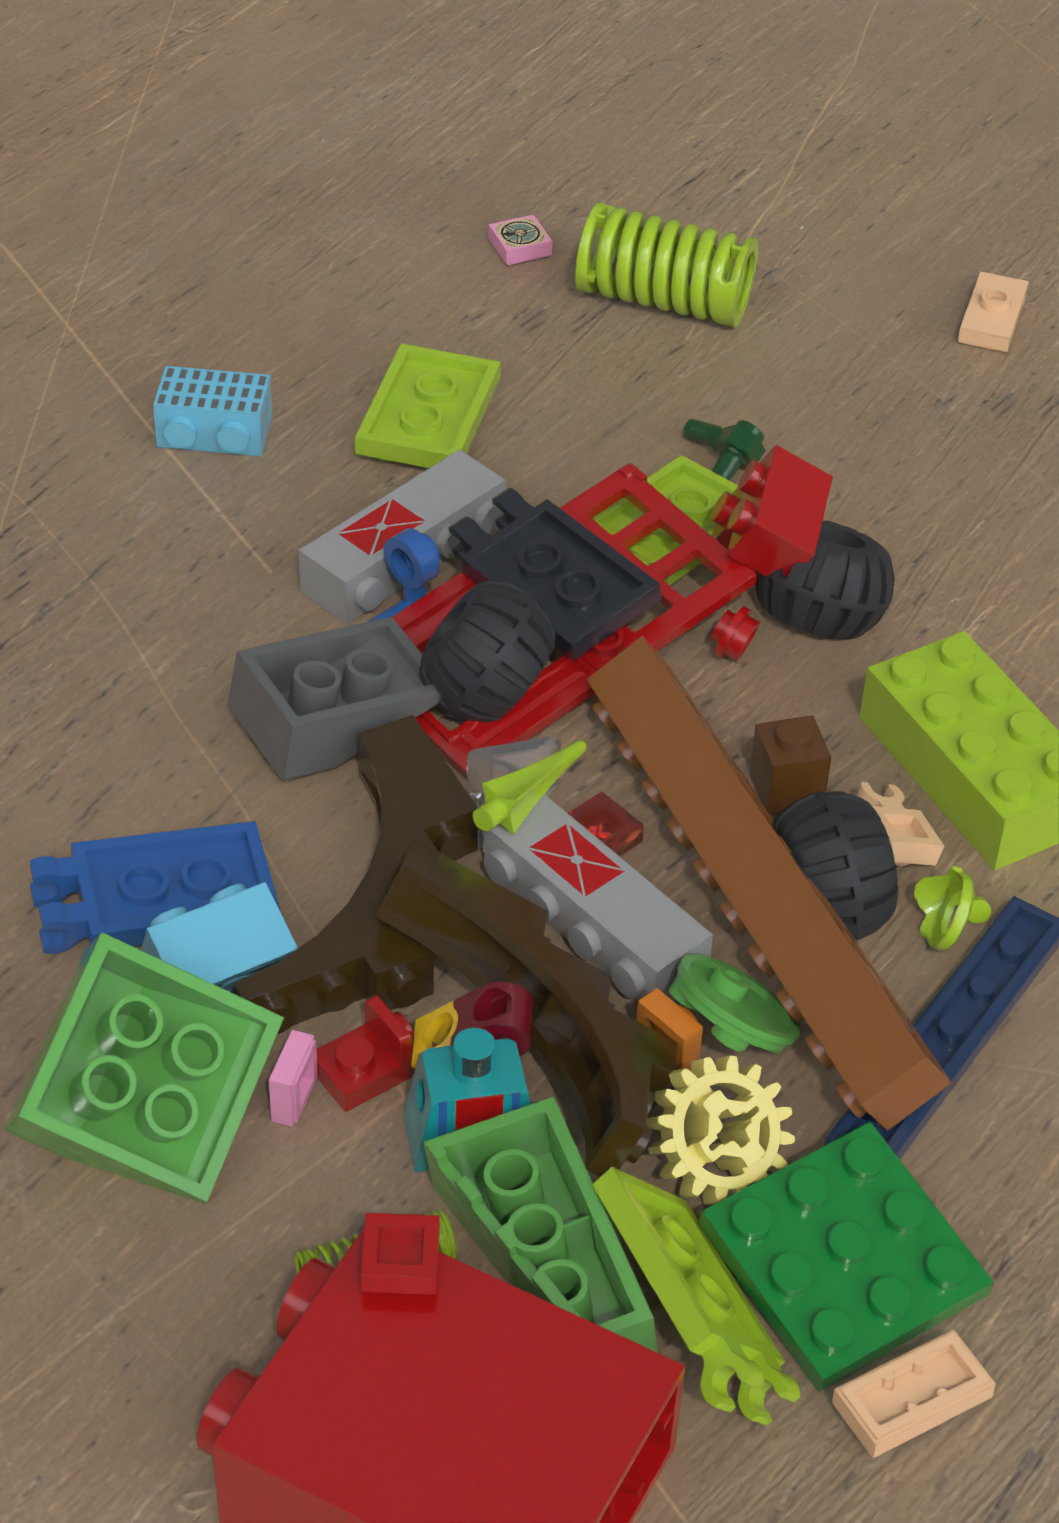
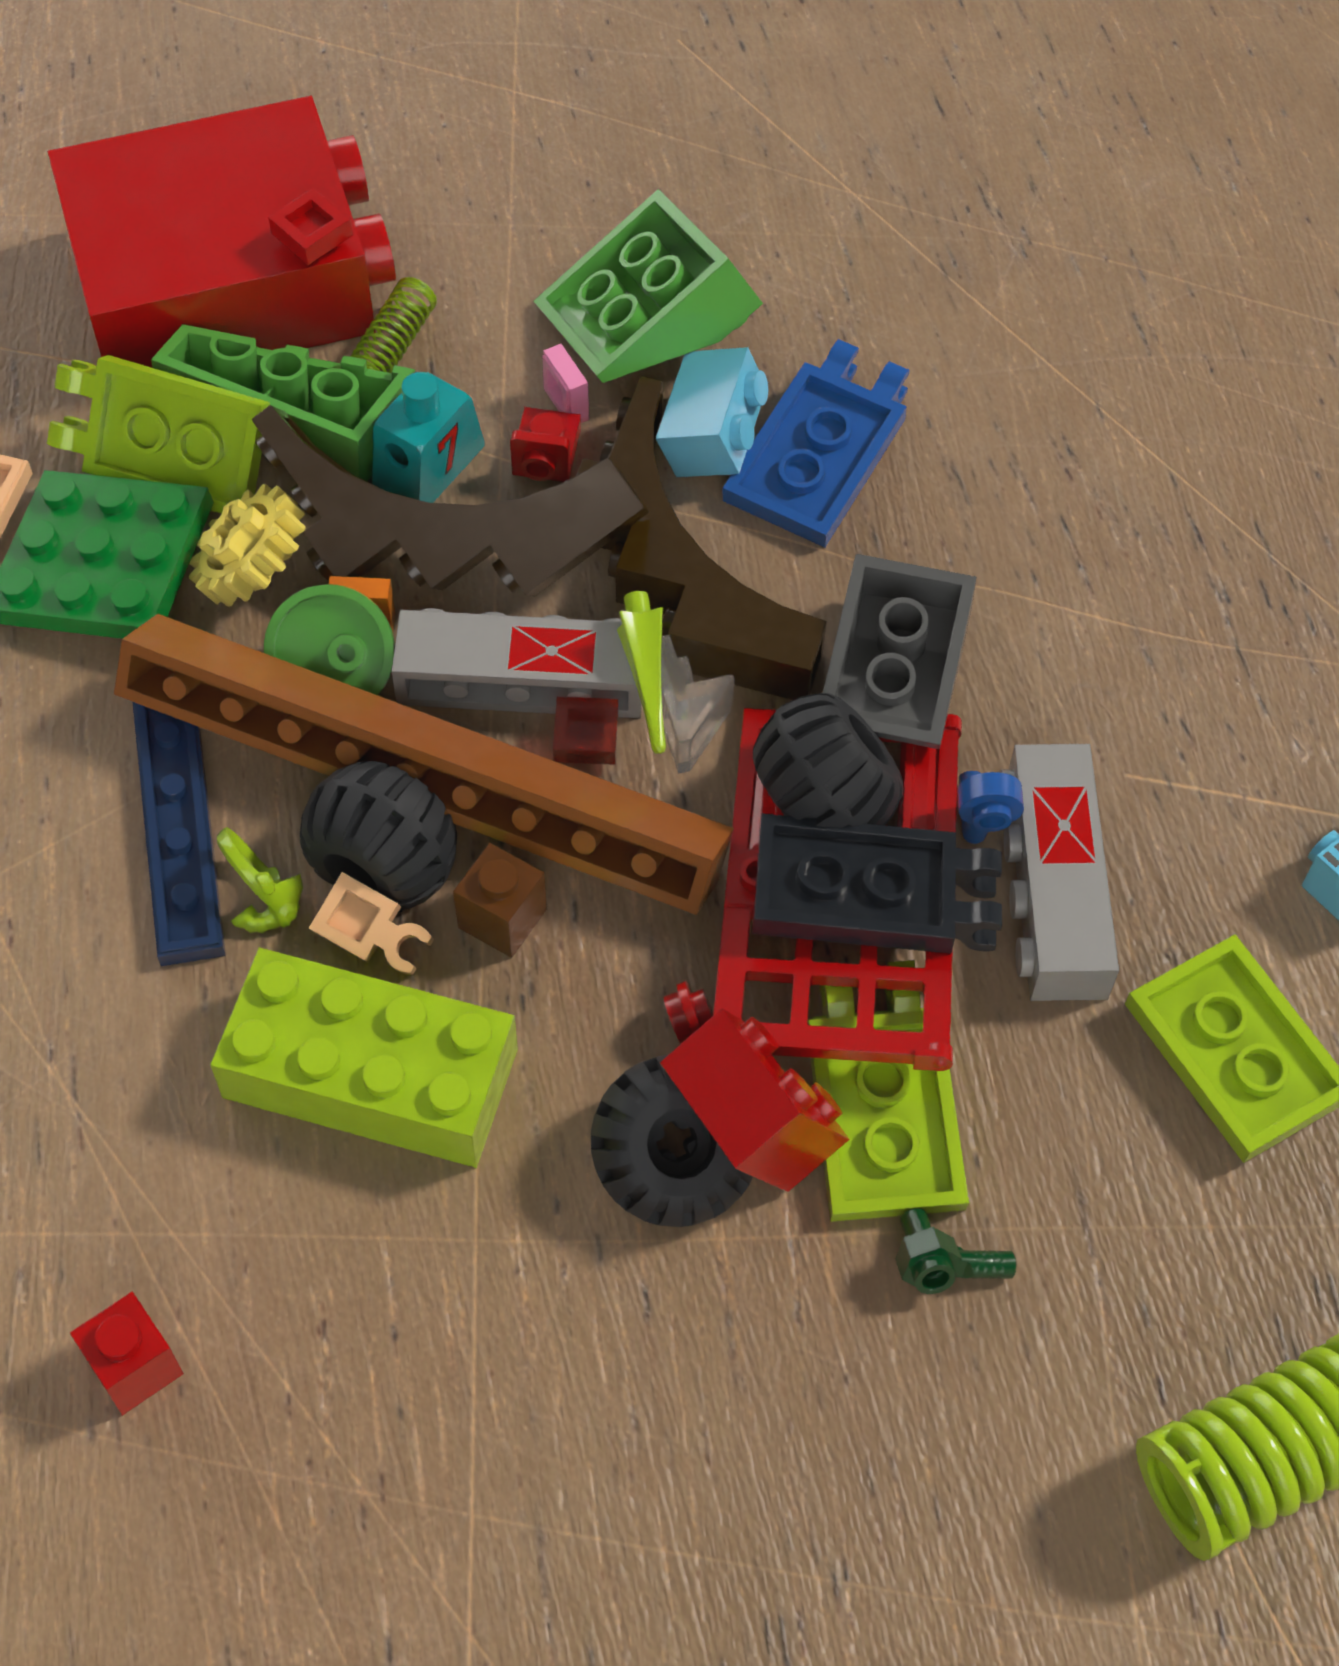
camera: 135 degrees right, 15 degrees up
(496, 1007) = (470, 468): dark red leg -> none

